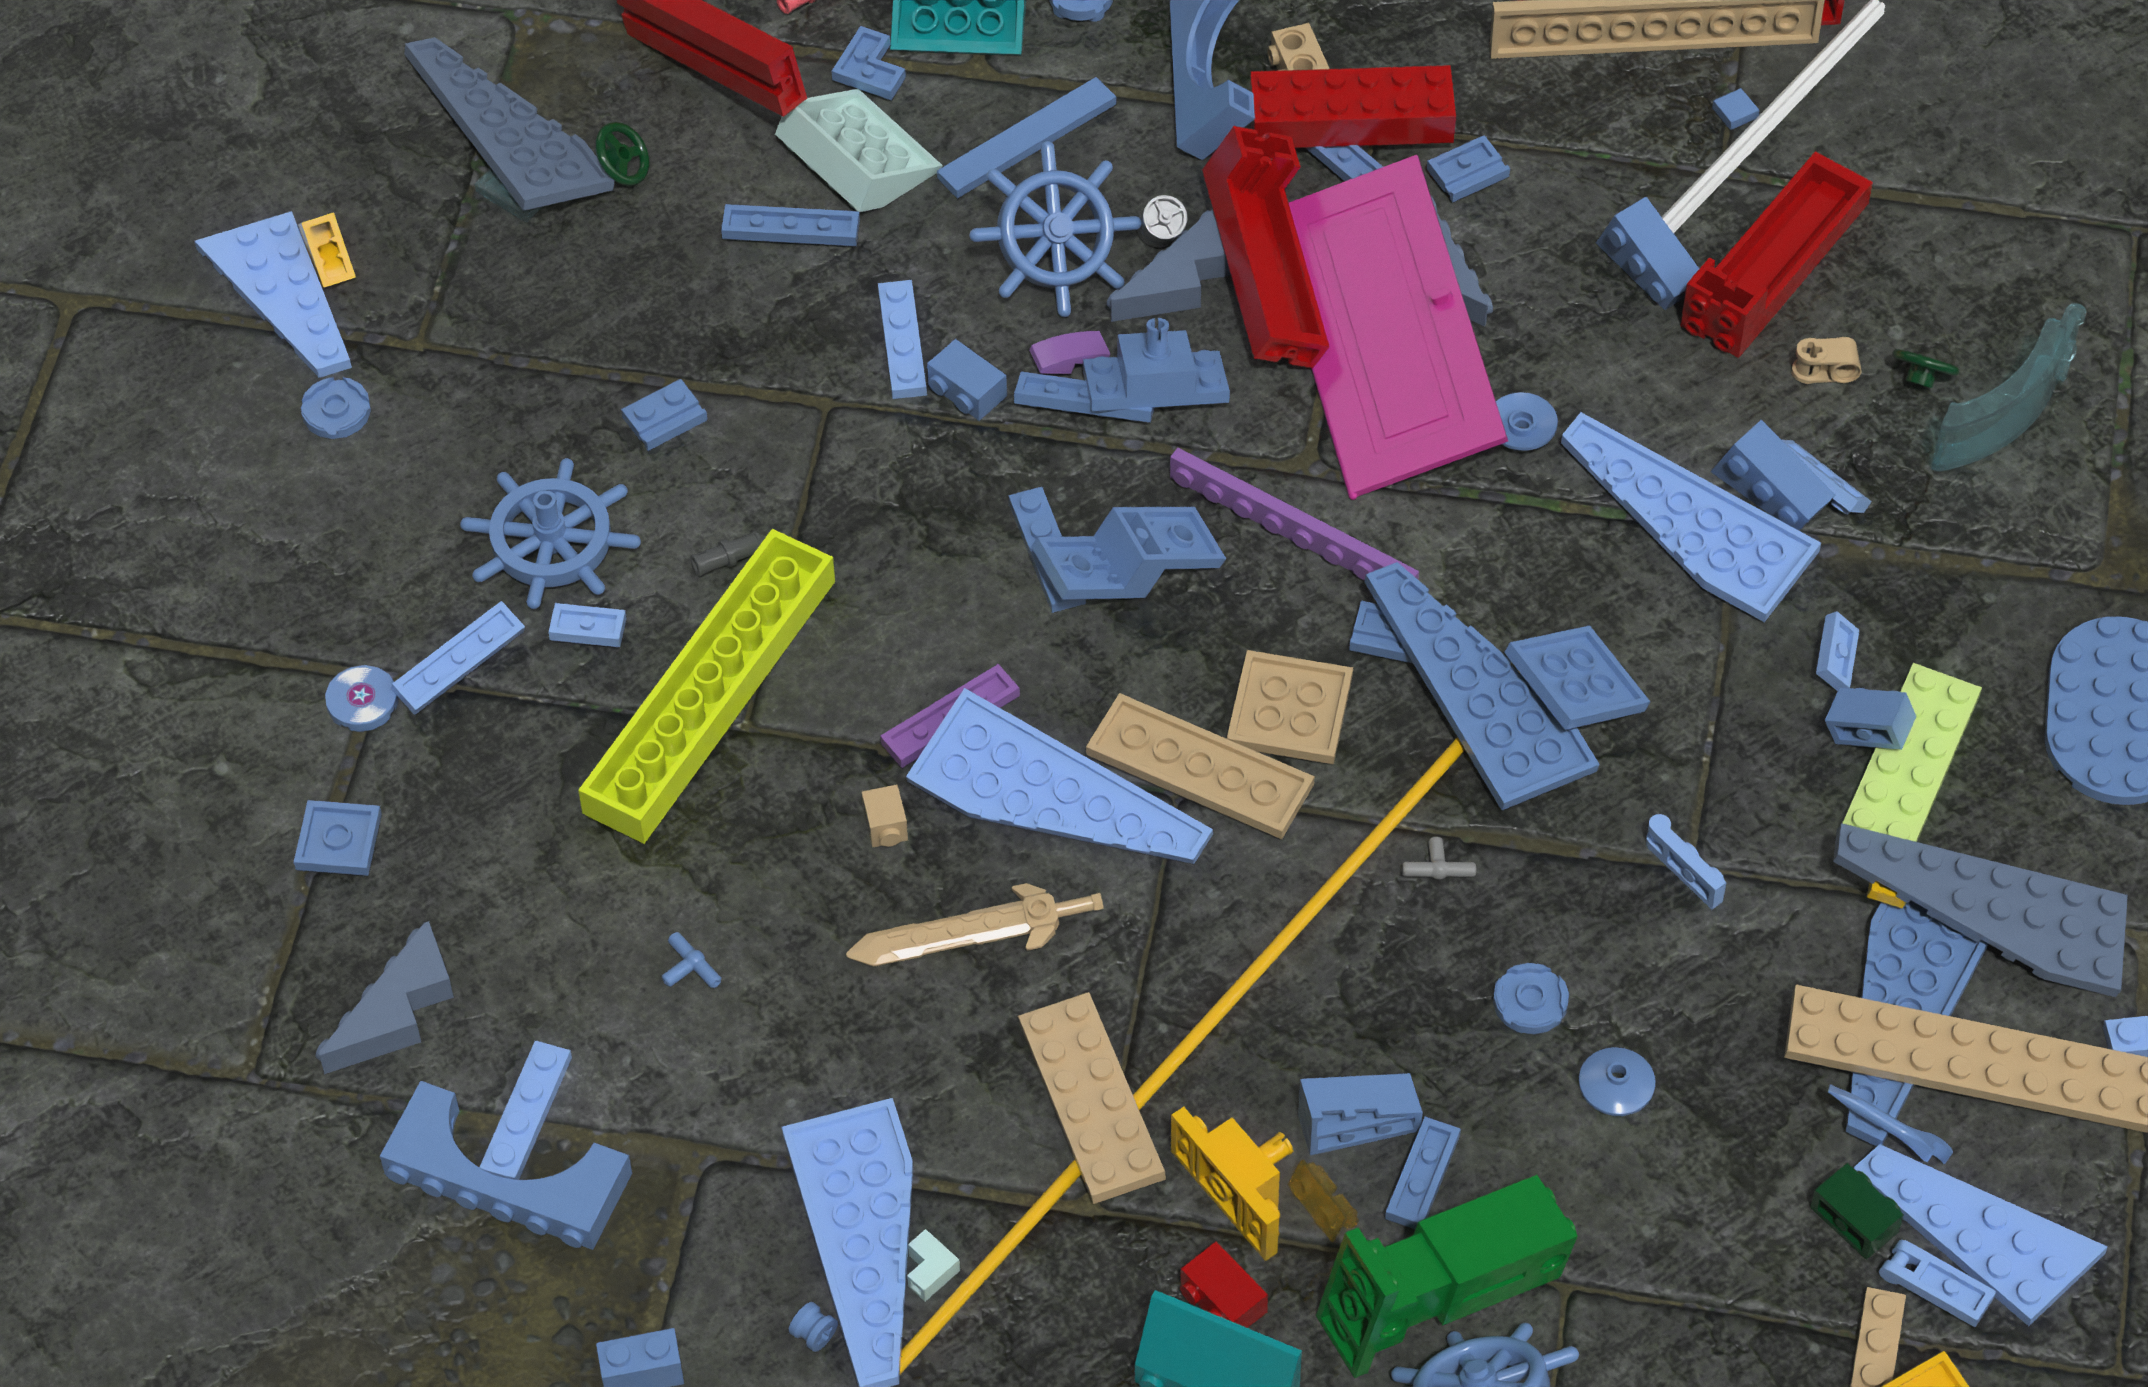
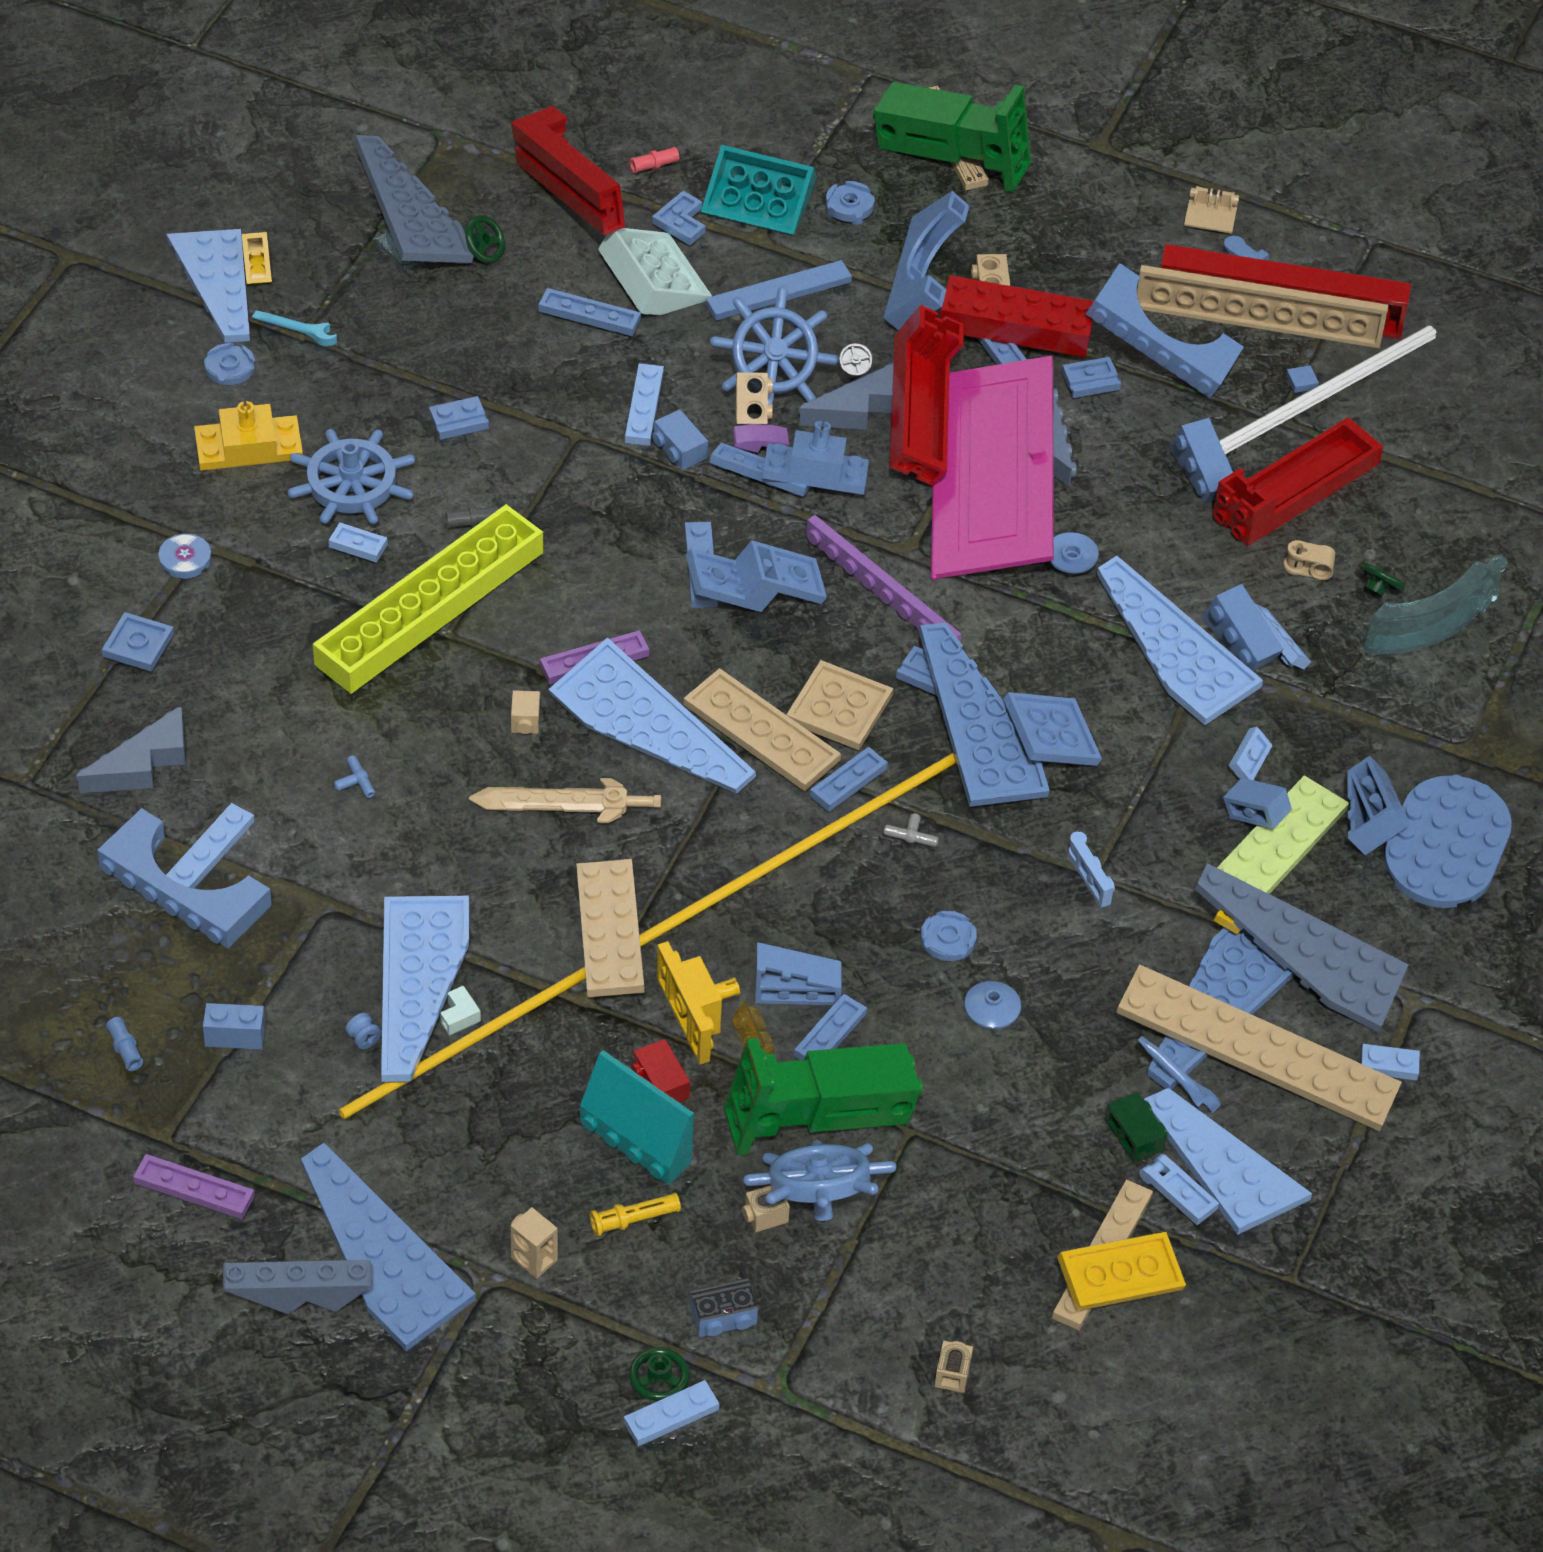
camera: 10 degrees right, 5 degrees down
(393, 510) = (247, 438): none -> yellow brick
(434, 334) = (315, 331): none -> medium azure piece
(457, 657) = (260, 543): light blue plate -> none
(1037, 304) = (745, 398): none -> tan brick
(1334, 809) = (848, 779): none -> medium blue plate
(1486, 74) = (1120, 312): none -> medium blue arch
(2018, 687) = (1374, 806): none -> medium blue wedge

